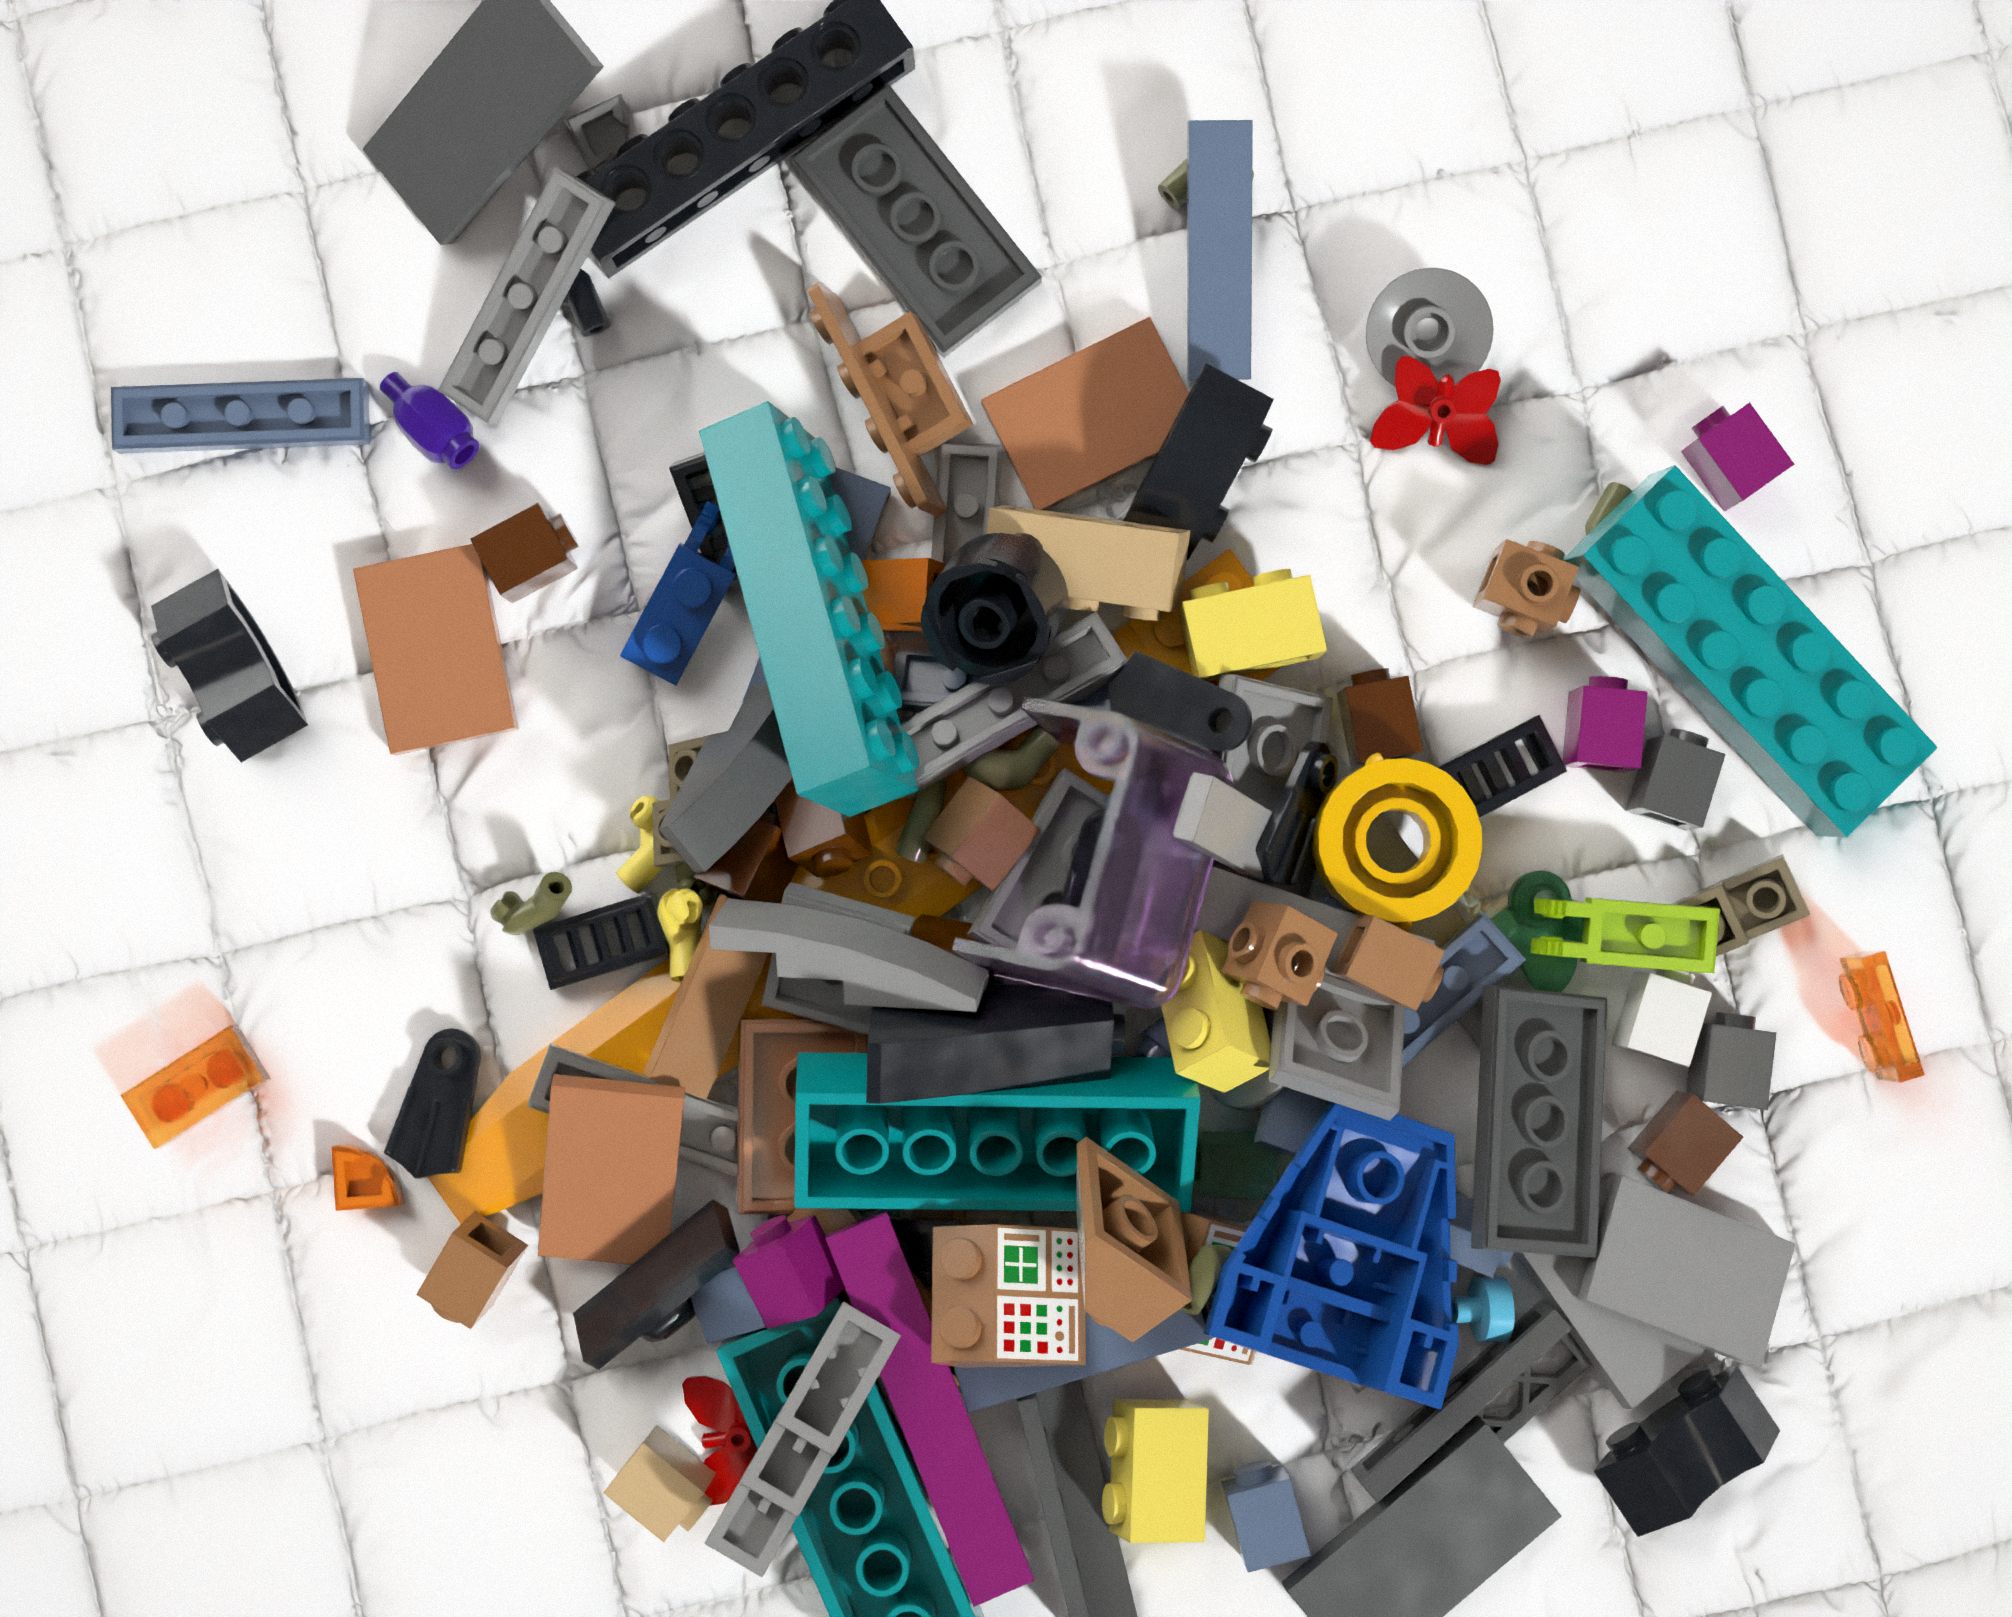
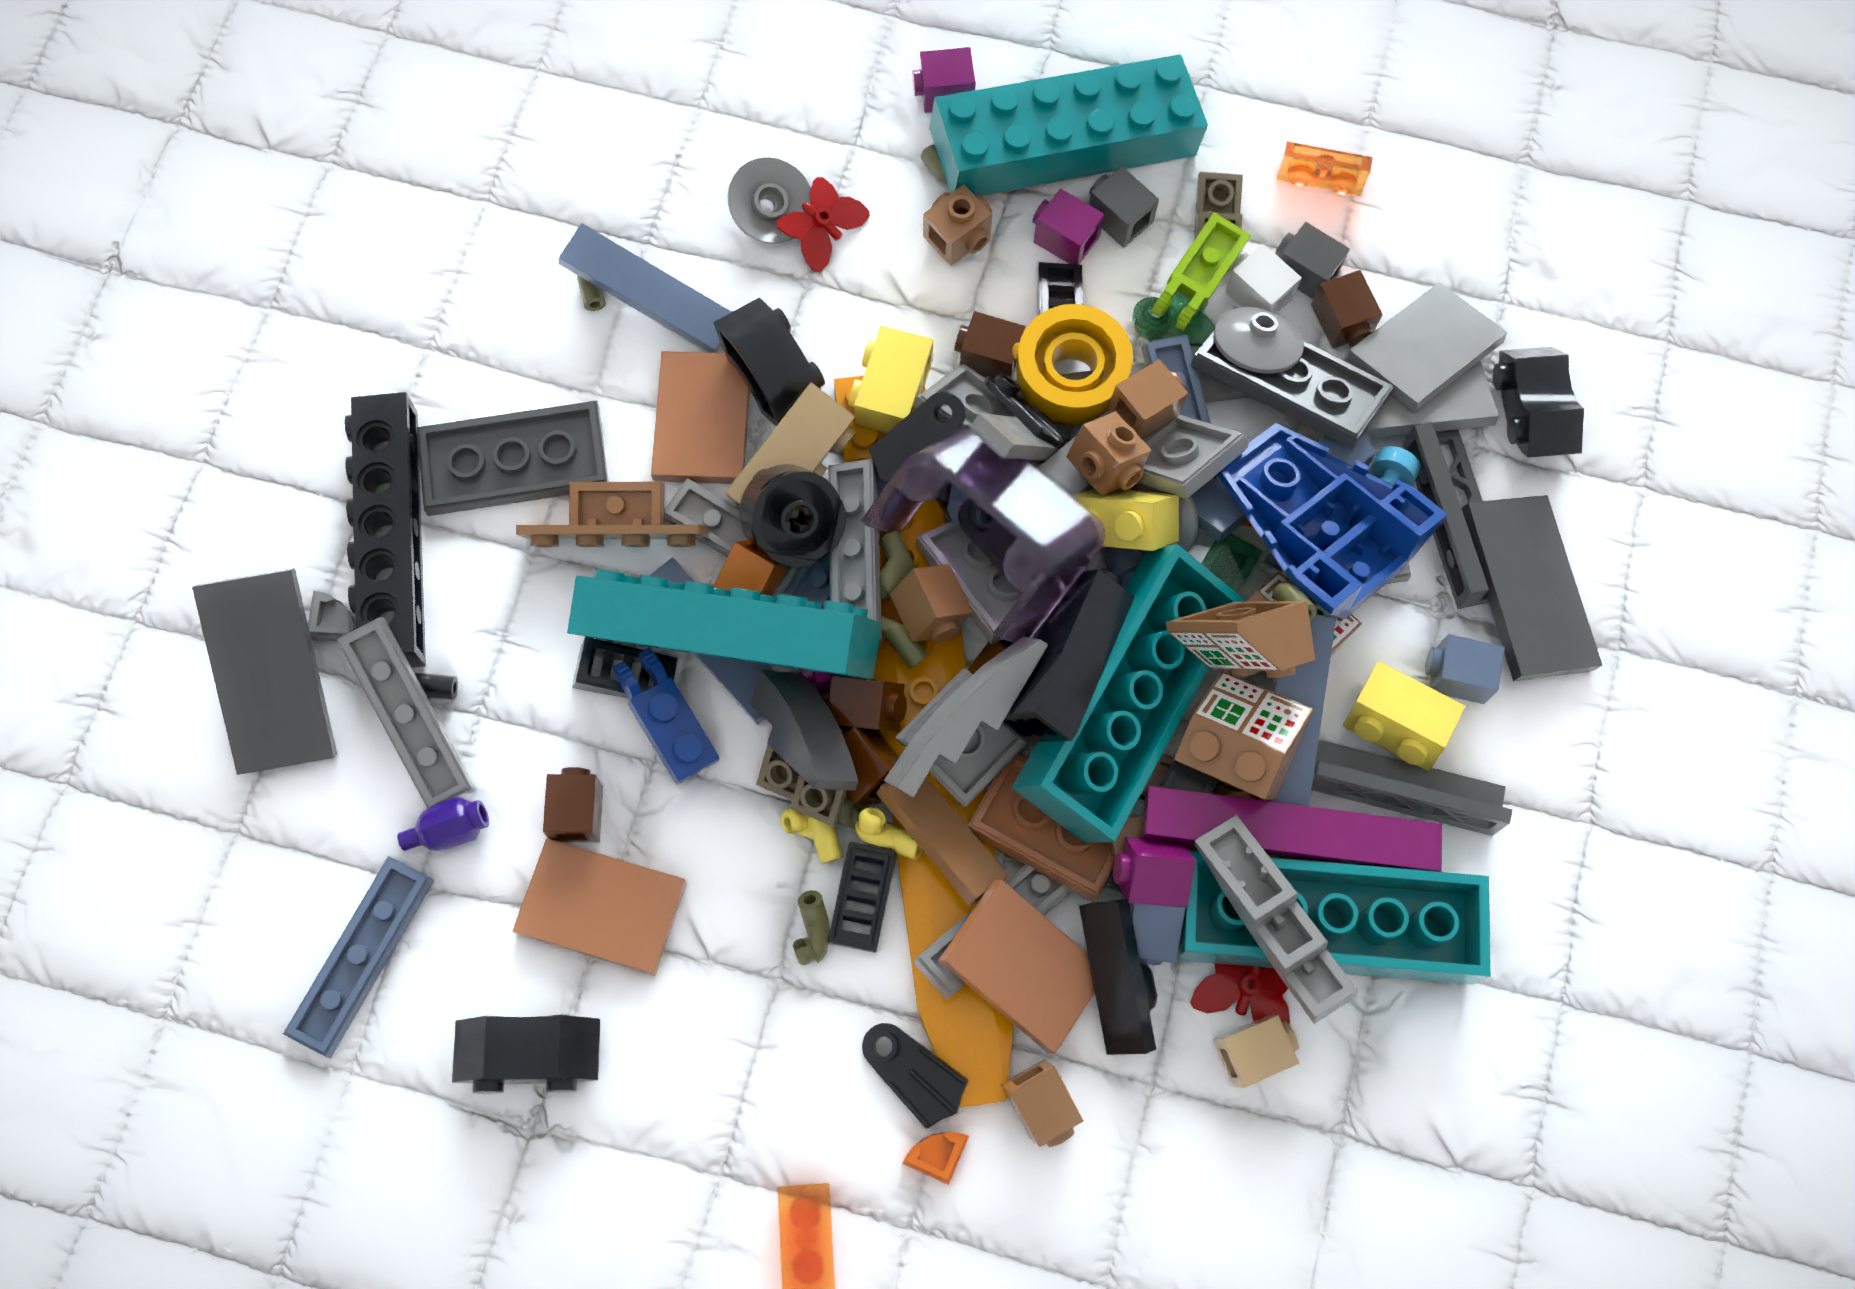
camera: 60 degrees left, 15 degrees down
(1545, 1061) = (1258, 340): none -> light grey dish

